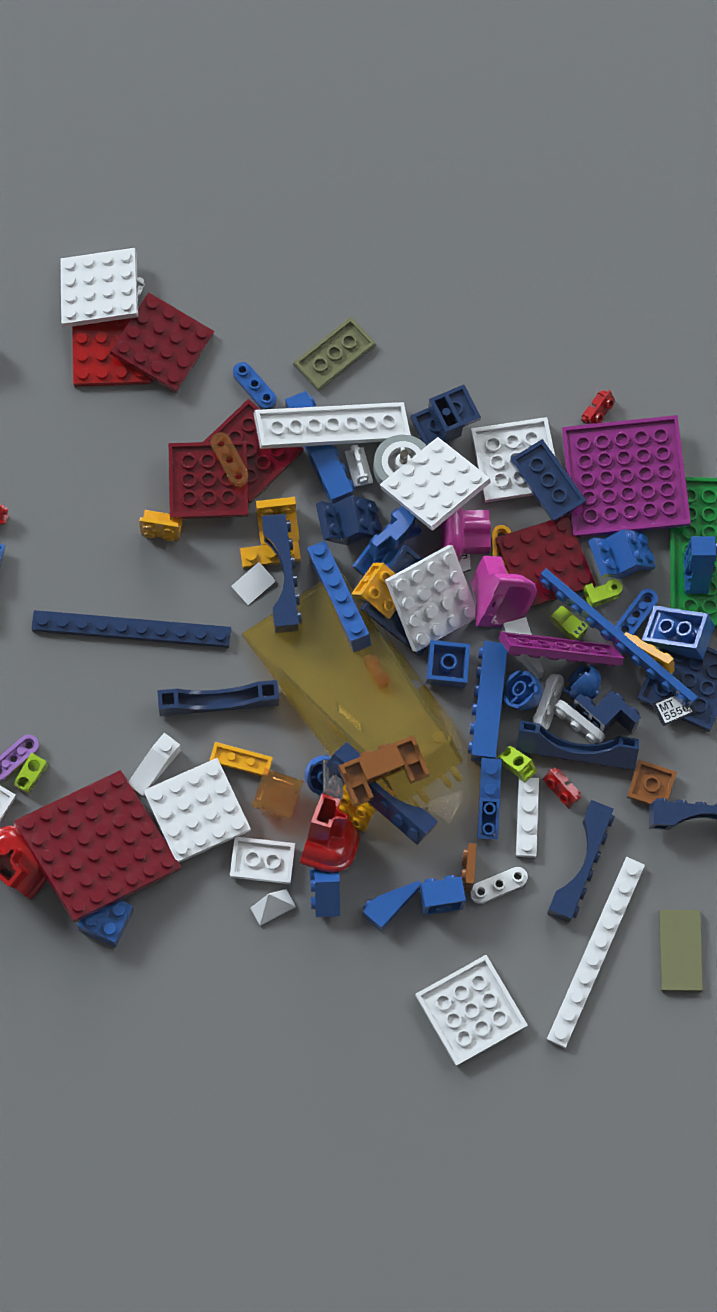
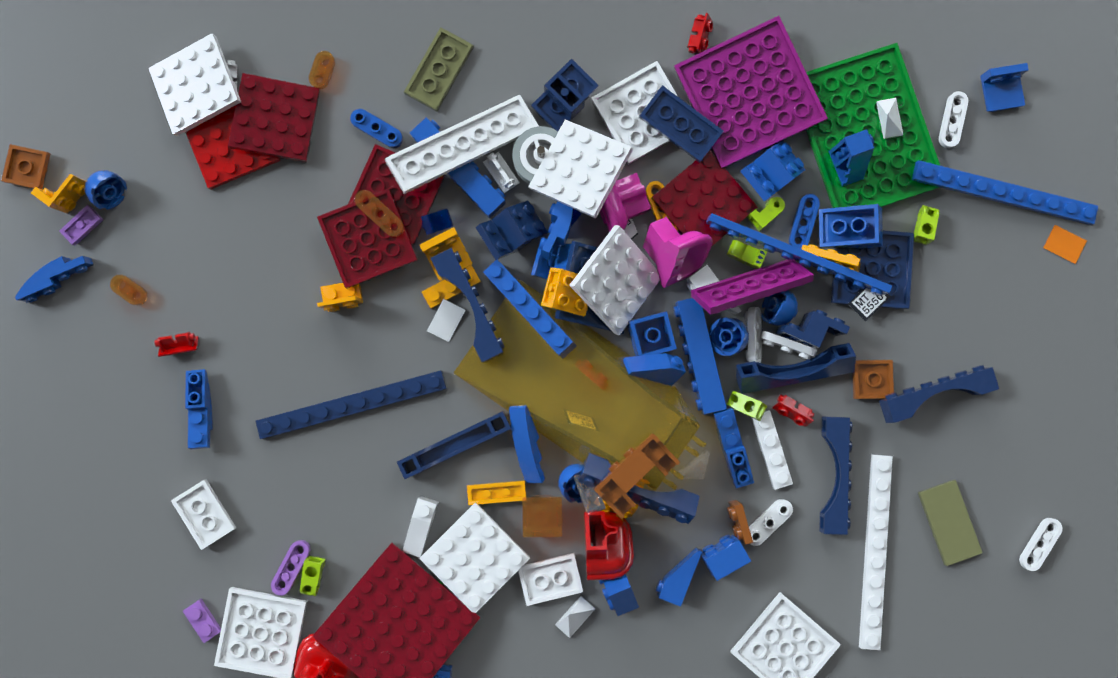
camera: 20 degrees left, 15 degrees up
(223, 317) = (321, 71): none -> clear orange plate
(277, 488) = (436, 221): none -> clear blue bracket
(286, 725) = (525, 444): none -> blue slope
(442, 693) = (656, 367): none -> blue slope

